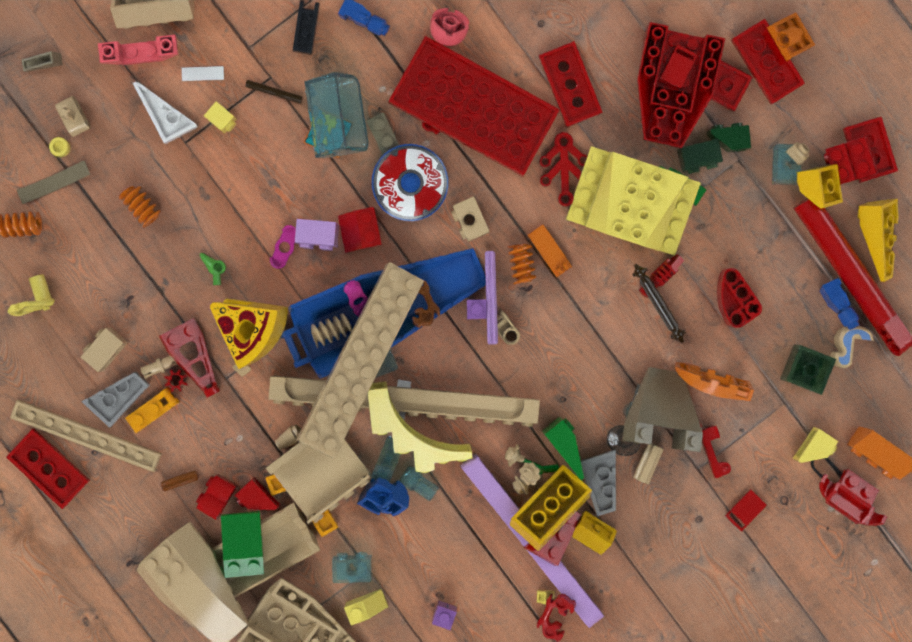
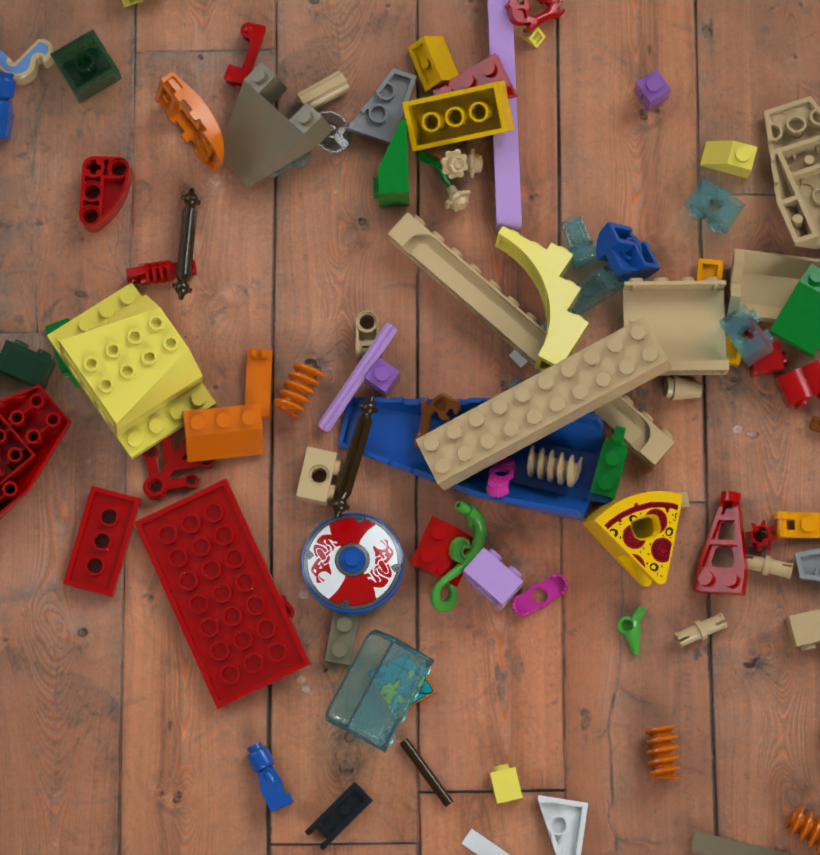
camera: 140 degrees left, 10 degrees down
(172, 296) = (700, 630): none -> tan pin
(263, 489) = (749, 349): none -> clear light blue brick
(296, 356) = (610, 465): none -> green hinge
(344, 233) = (456, 549): none -> bright green plant
(449, 27) = (184, 696): coral cylinder -> none
(457, 247) = (354, 456): none -> dark brown wheel
(548, 203) = (223, 432): none -> orange slope

